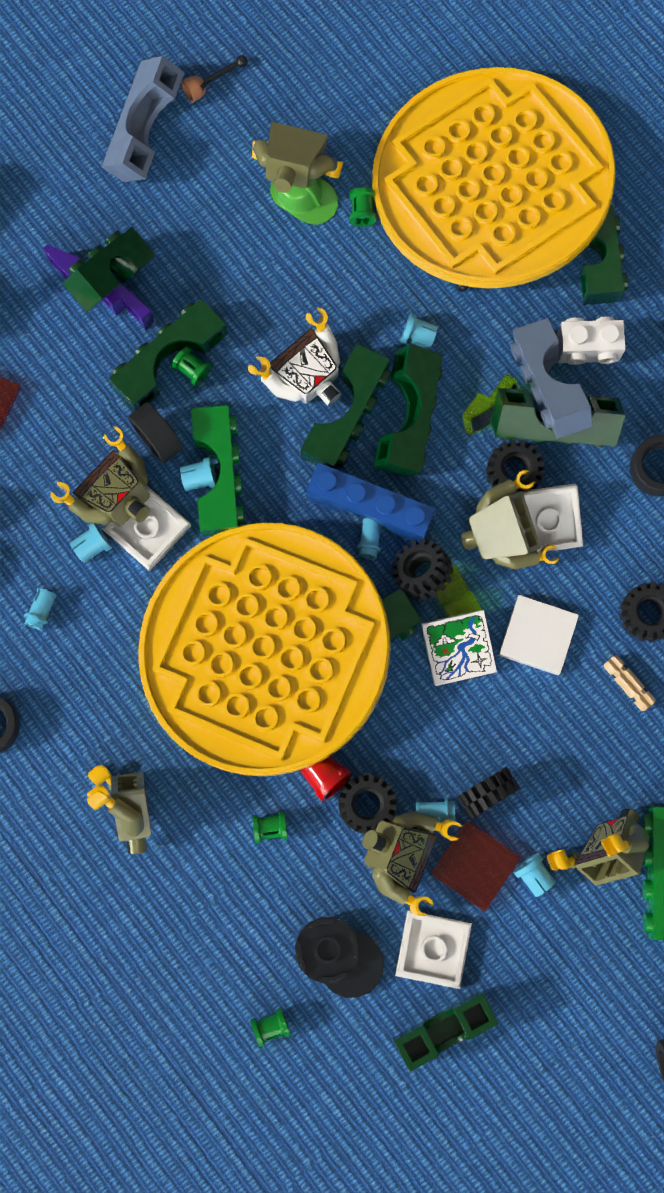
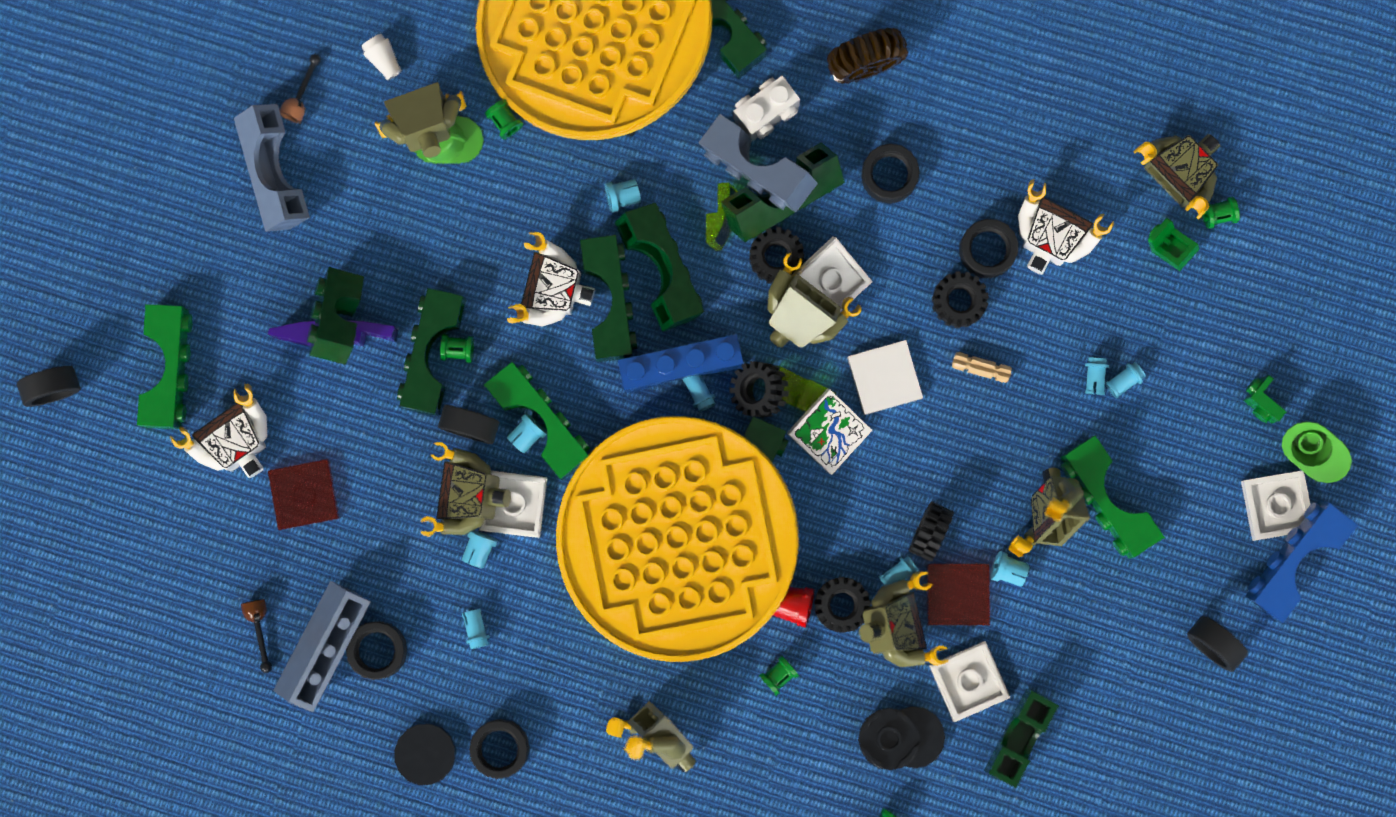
camera: 30 degrees left, 5 degrees up
(297, 90) = (381, 55): none -> white cone

